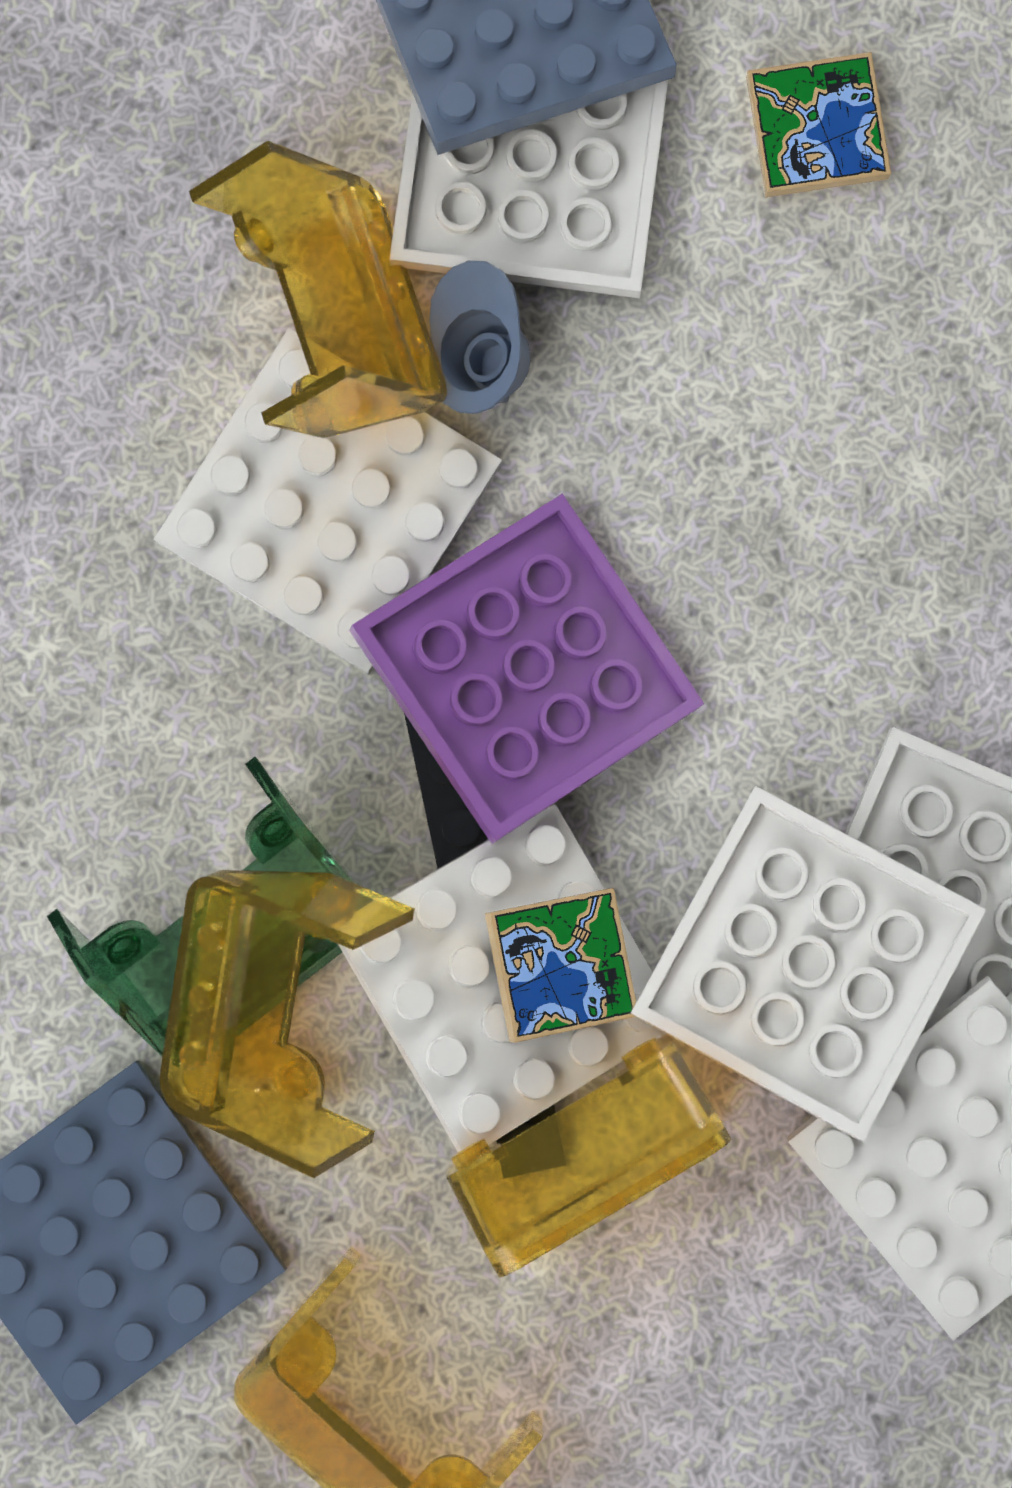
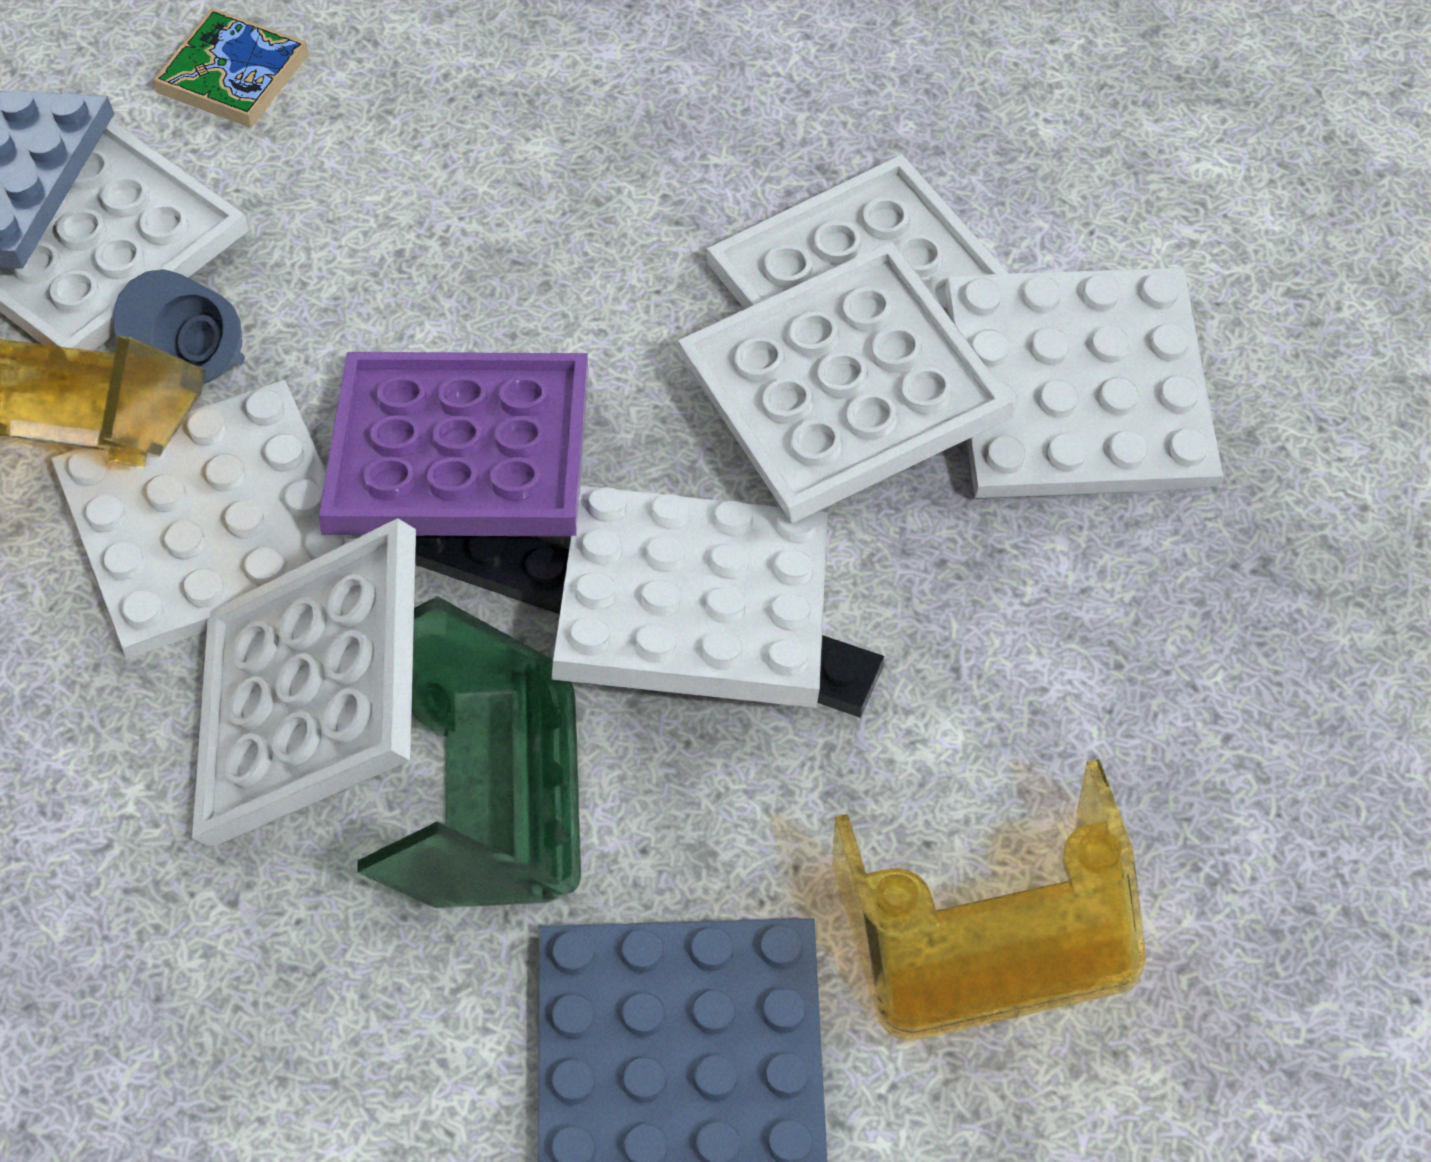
camera: 60 degrees left, 30 degrees down
(188, 743) = (307, 685): none -> white plate
(235, 1004) = (535, 771): clear yellow windscreen -> none
(561, 965) = (711, 535): tile -> none
(586, 1158) = (881, 607): clear yellow windscreen -> none

